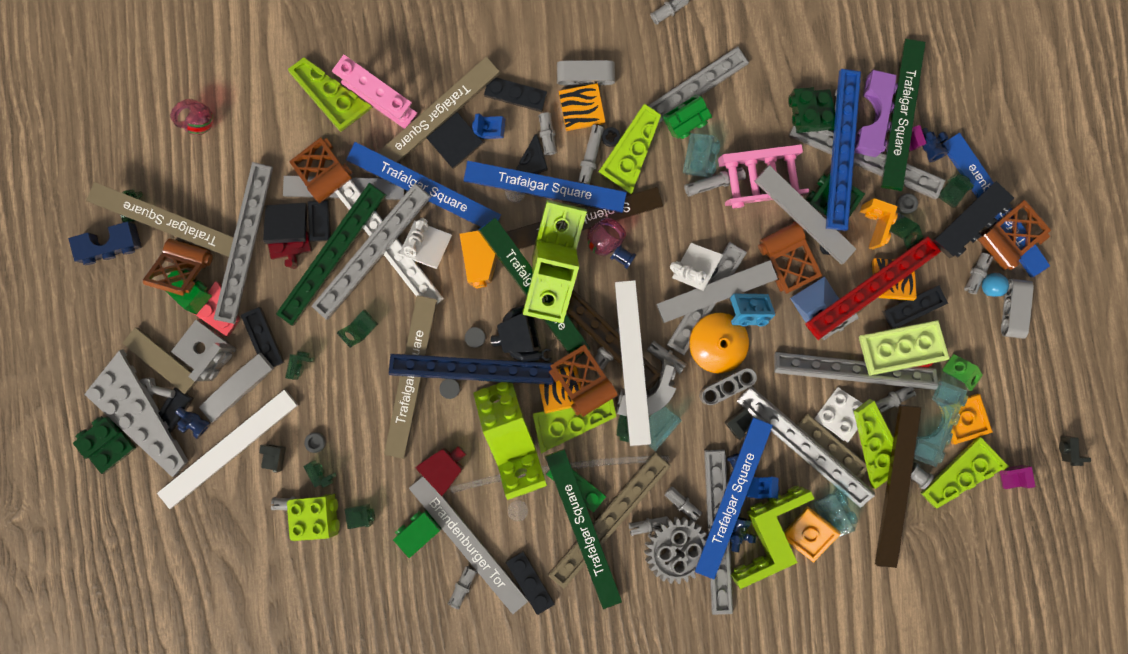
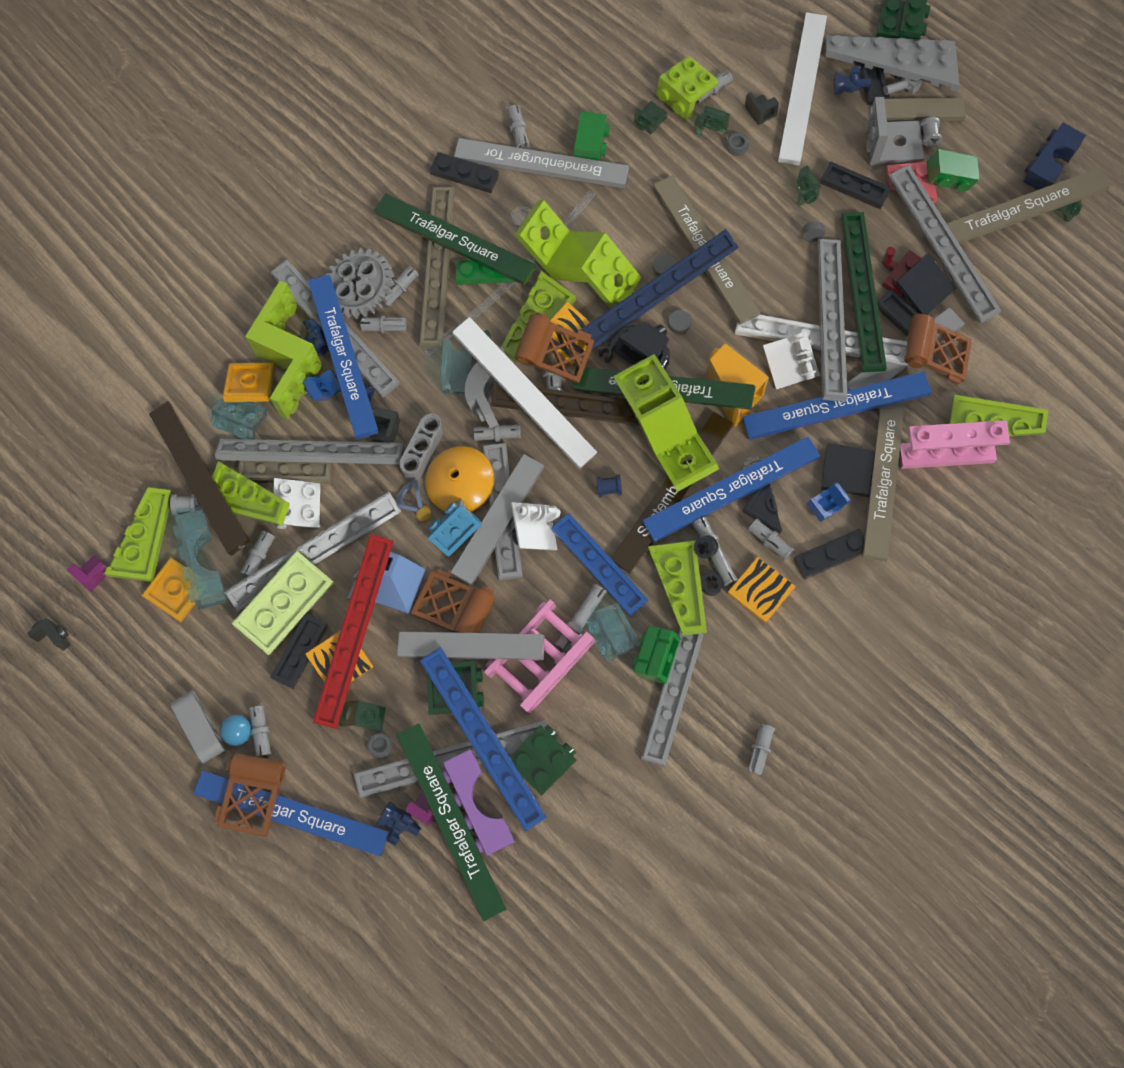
camera: 150 degrees right, 15 degrees down
(171, 335) = (931, 131): none -> light grey bush
(182, 256) = (977, 196): dark orange piece -> none
(199, 119) = (1079, 307): clear pink helmet -> none
(236, 387) = (840, 133): light grey slope -> none
(324, 327) = (813, 231): none -> dark grey tile
(359, 329) = (784, 254): clear green bracket -> none
(442, 468) = (614, 198): dark red torso -> none
(585, 72) = (785, 622): light grey beam -> none
(600, 155) = (713, 545): none -> black bush
(601, 241) = (639, 482): clear pink helmet -> none
(673, 208) = (599, 564): none -> blue plate
(762, 339) = (423, 513): none -> sand blue piece
(886, 216) = (405, 704): light orange bracket -> none
(955, 190) = (342, 795): clear green bracket -> none
(963, 371) = (209, 627): bright green bracket -> none
(973, 220) = (303, 772): black brick -> none

